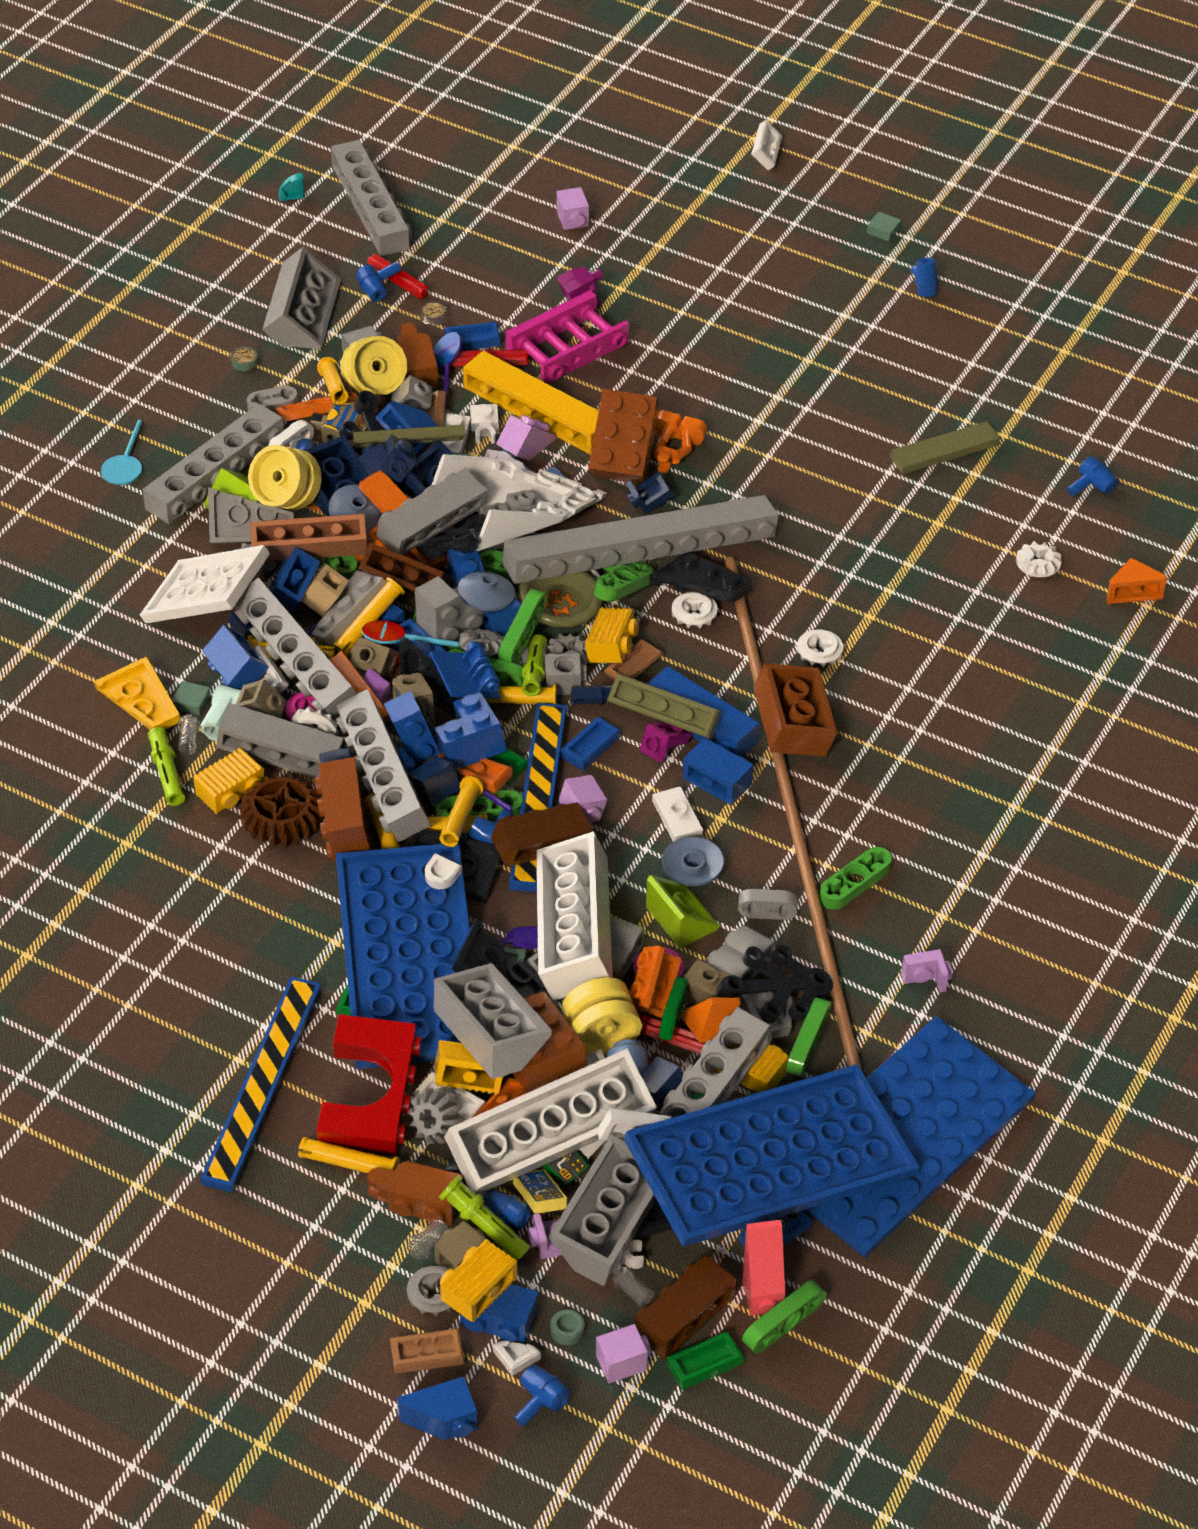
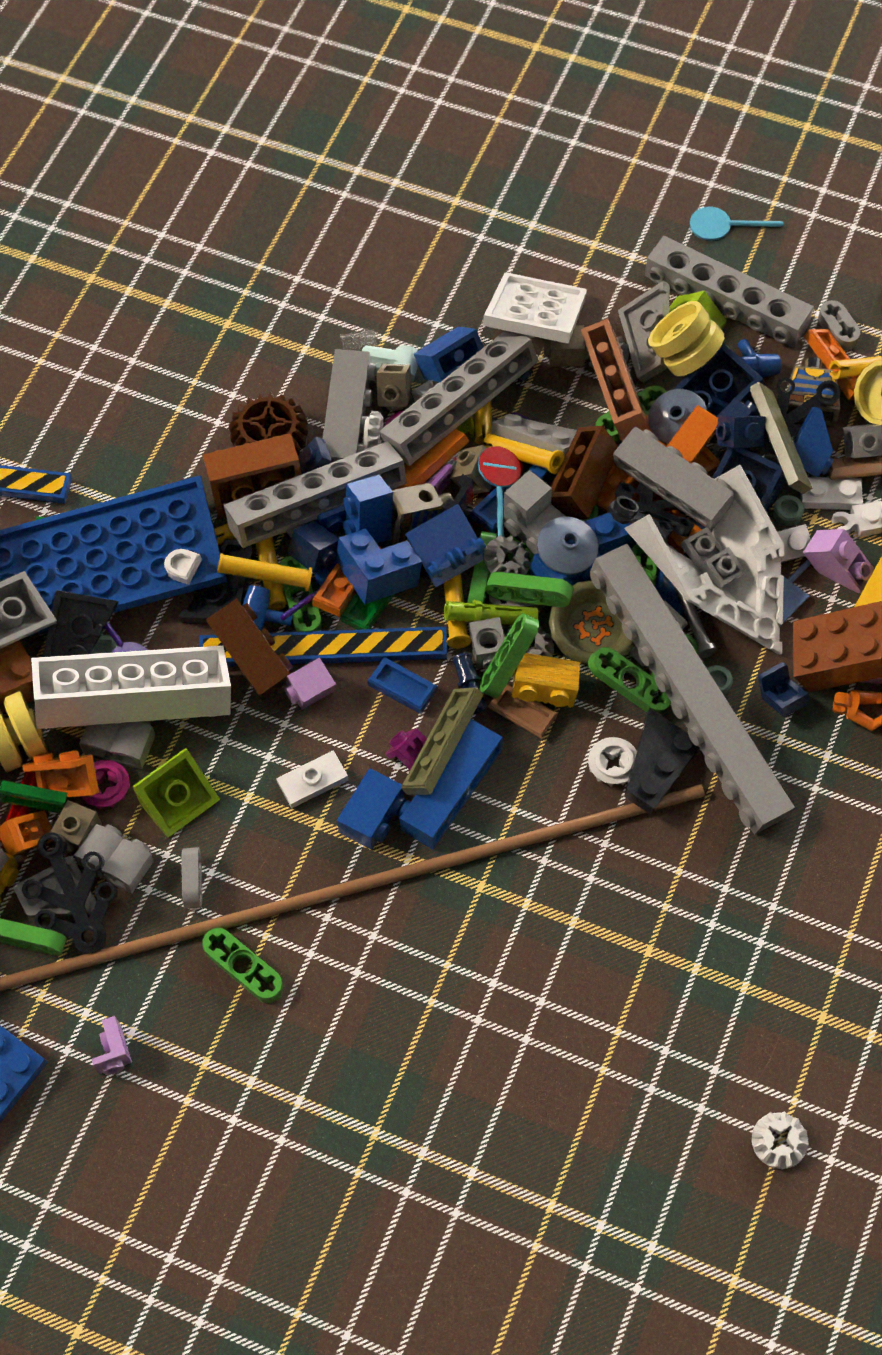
camera: 85 degrees right, 15 degrees up
(140, 694) = (404, 295): yellow wing -> none
(163, 756) = (326, 327): lime pin -> none
(191, 697) = (410, 333): sand green tile -> none
(227, 780) = (299, 380): yellow brick -> none
(293, 578) = (564, 381): blue brick -> none
(294, 433) = (768, 342): white plate -> none
(321, 595) = (560, 410): tan brick -> none
(578, 645) = (509, 655): none -> bright green beam
(693, 861) = (238, 785): sand blue dish -> none
(794, 710) = (458, 872): dark orange brick -> none
(827, 641) = (588, 886): white gear -> none
(1136, 583) = (755, 1257): orange slope -> none

